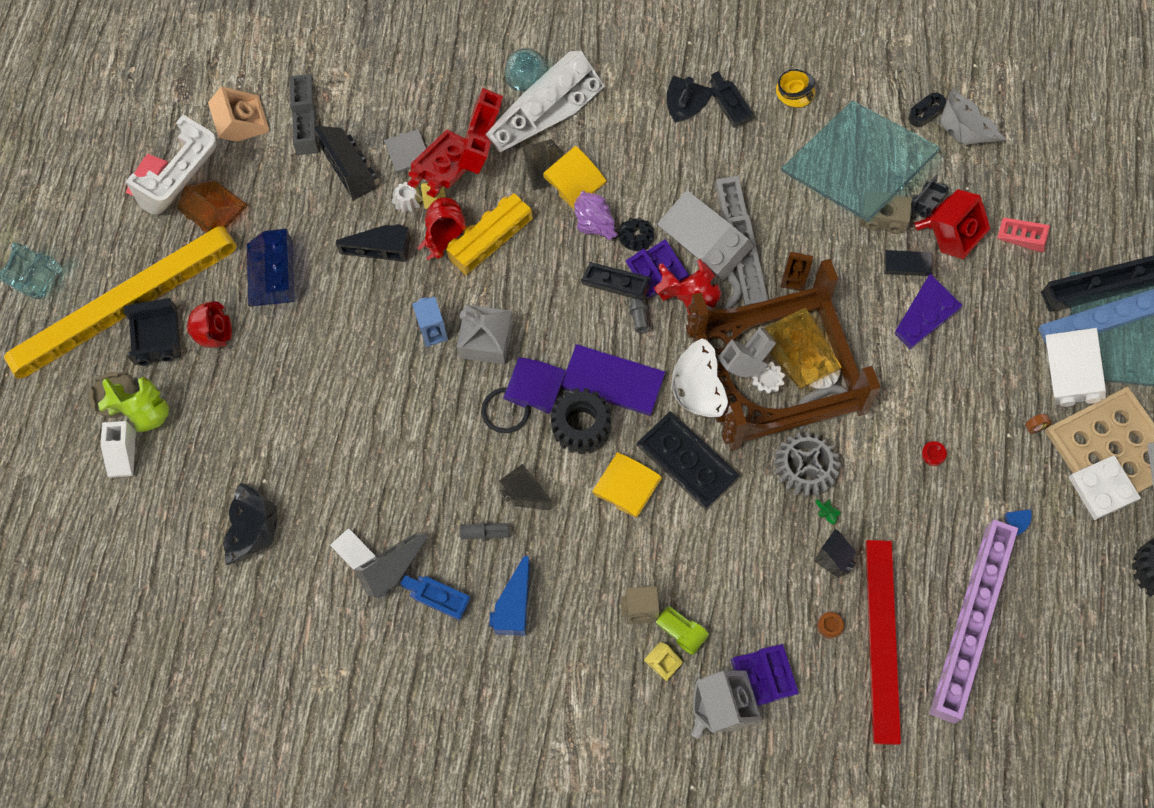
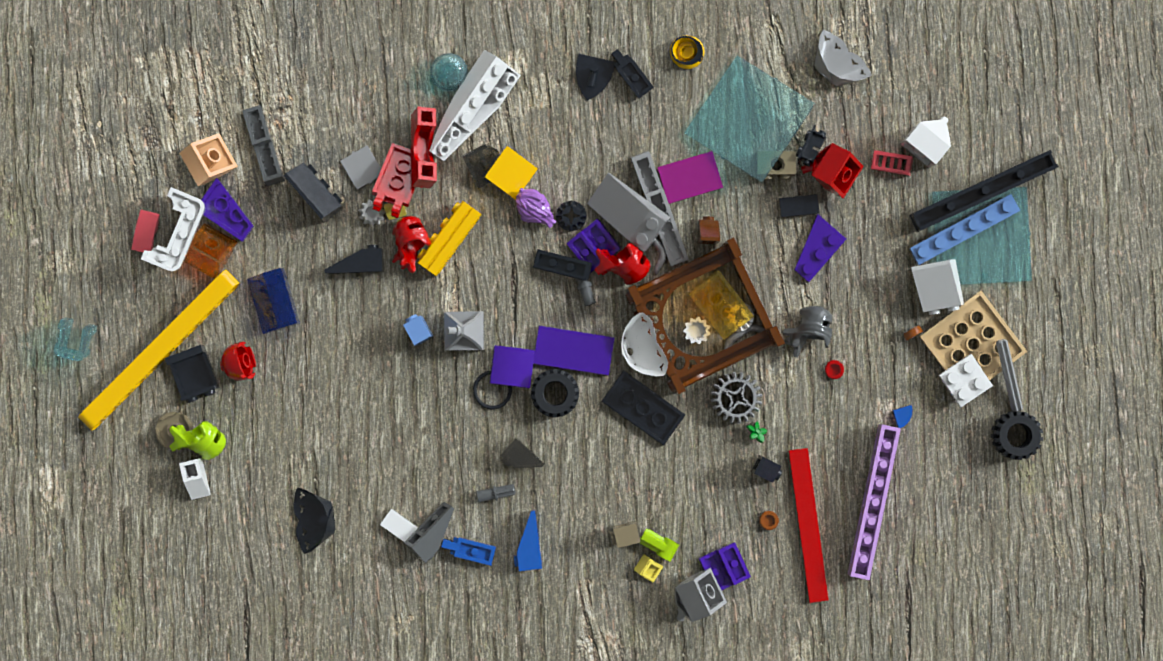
camera: 15 degrees left, 20 degrees up
(240, 169) = (225, 212): none -> dark purple wing
(627, 484) = (599, 437): yellow slope -> none
(749, 358) = (678, 321): light grey brick -> none
(782, 214) = (690, 177): none -> magenta tile
(914, 395) = (813, 325): none -> dark grey piece
(924, 106) = (799, 51): black beam -> none
(1069, 211) = (928, 141): none -> white piece

